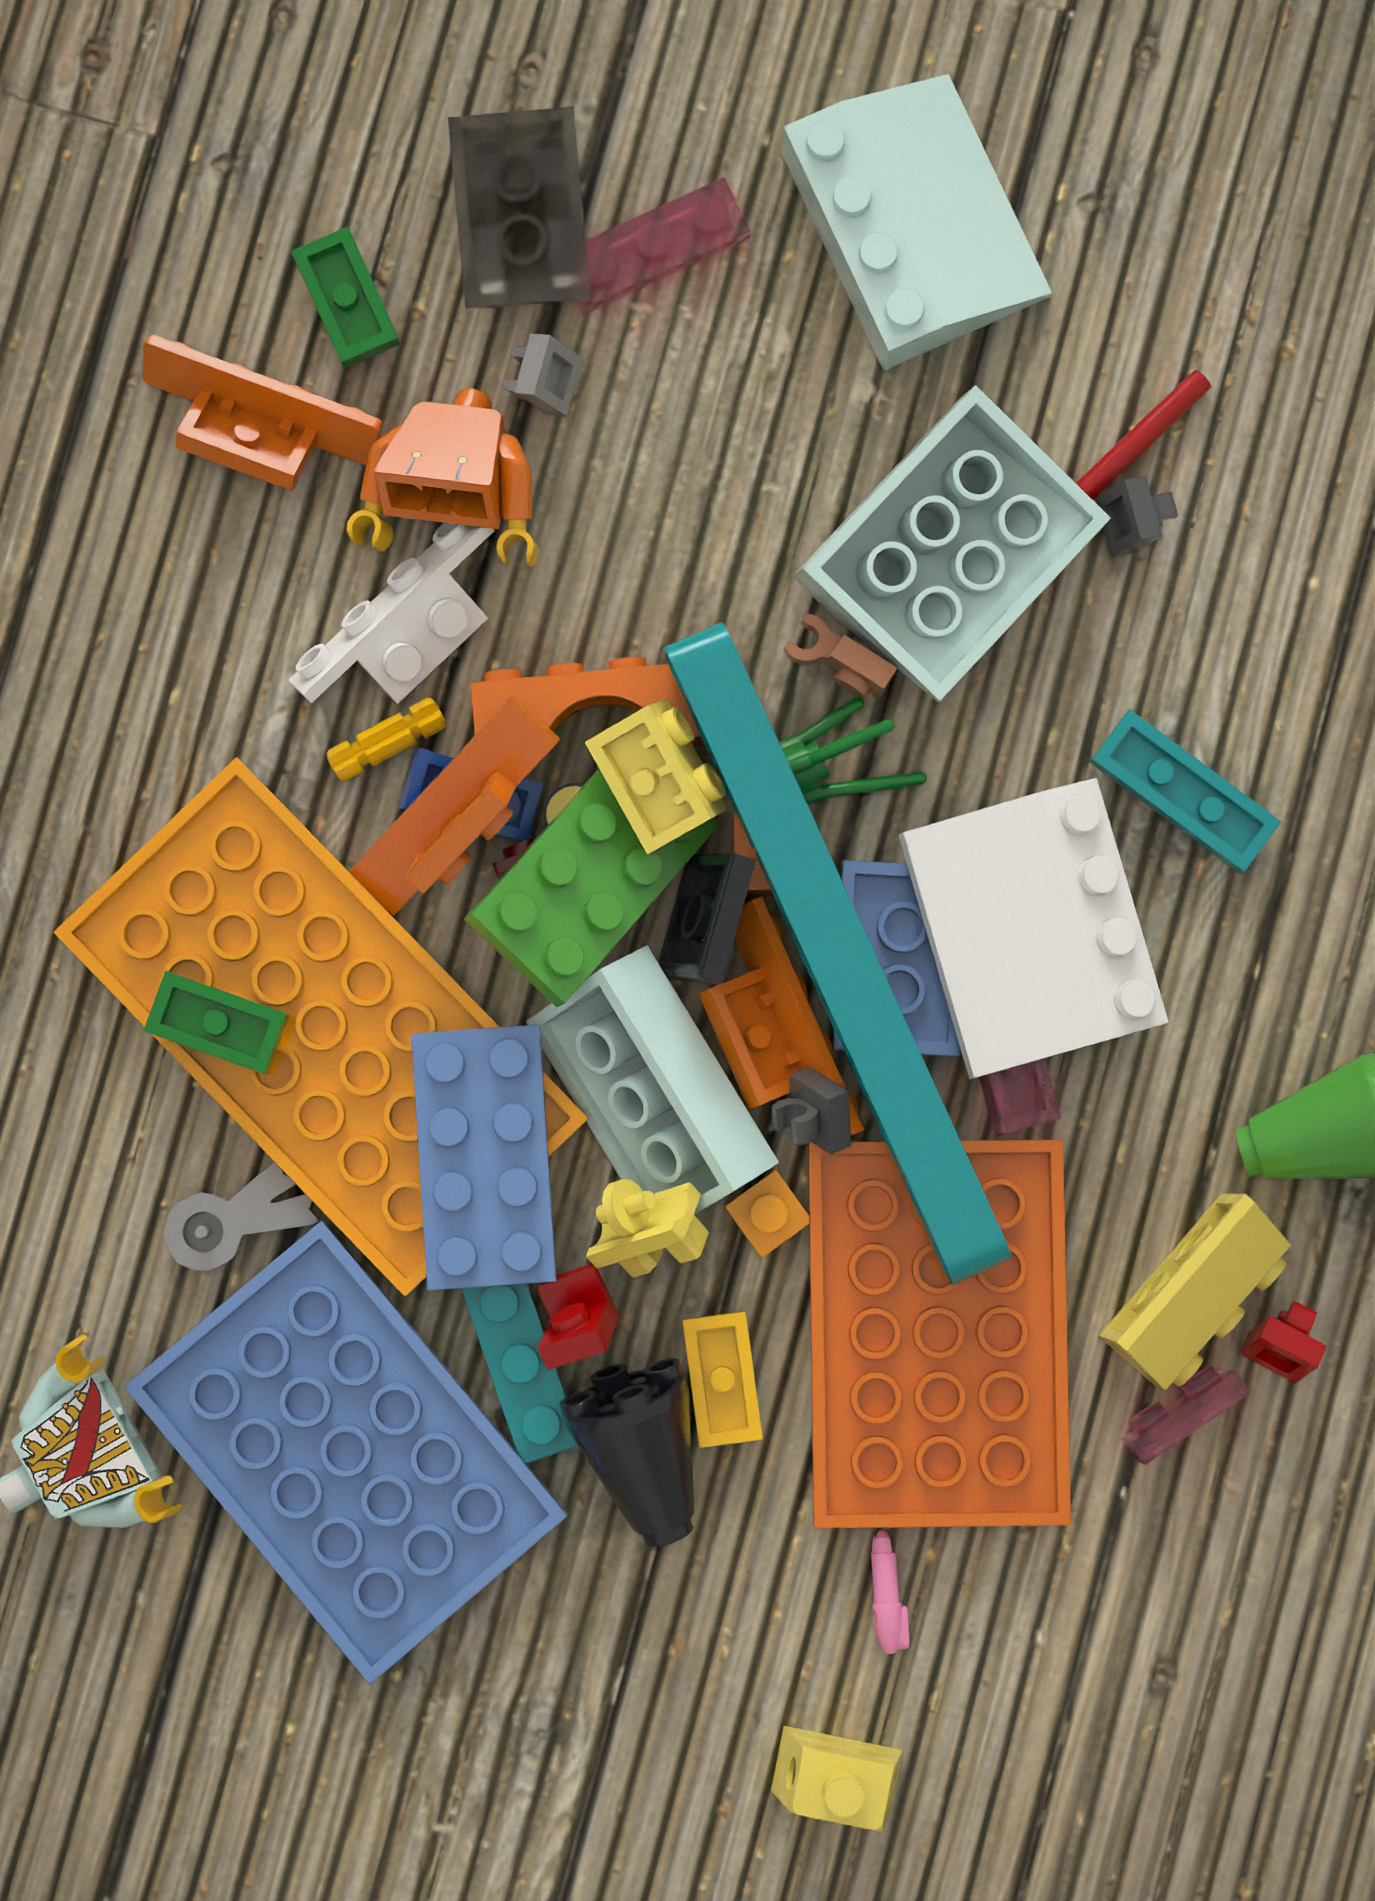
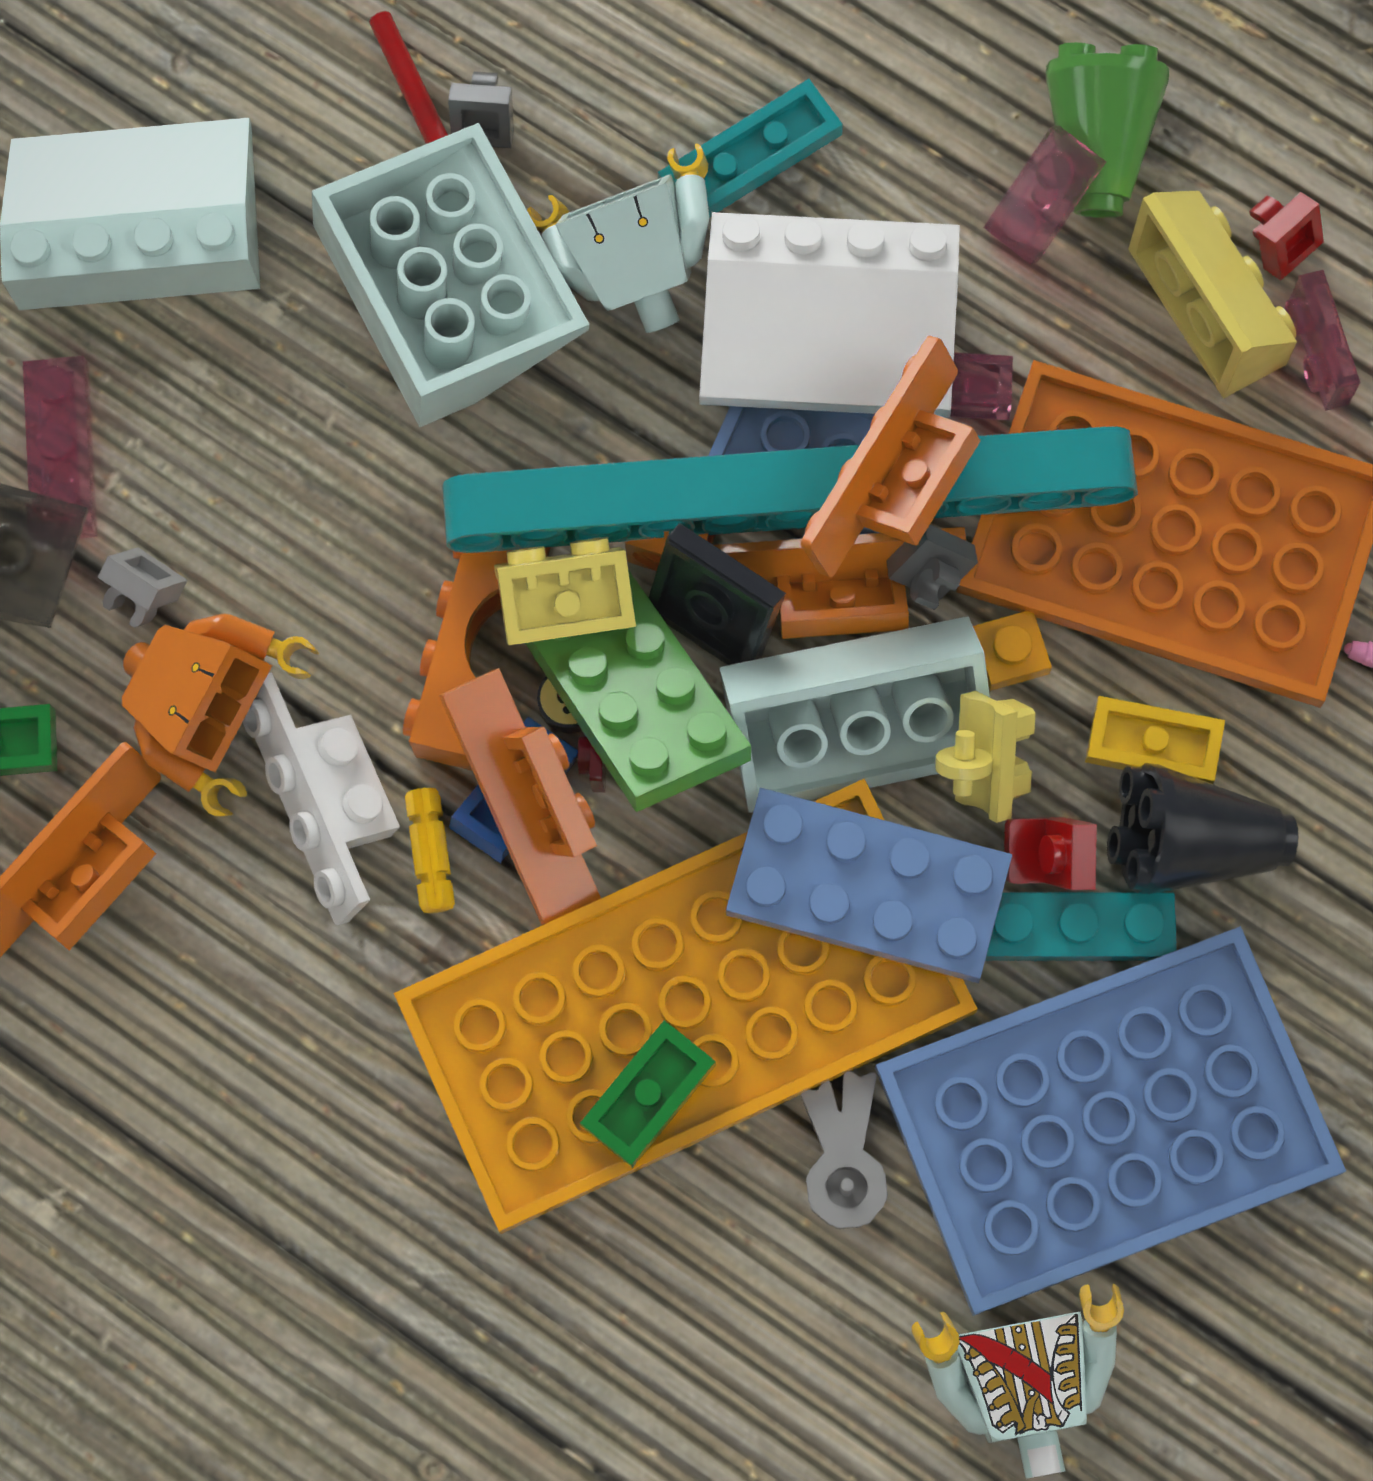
camera: 60 degrees left, 10 degrees down
(809, 765) = (600, 454): green plant -> none
(855, 666) = (522, 397): nougat plate -> none
(880, 1051) = (900, 466): none -> orange bracket
(1043, 712) = (634, 242): none -> light aqua torso
(1237, 1094) = (1044, 194): none -> clear pink plate

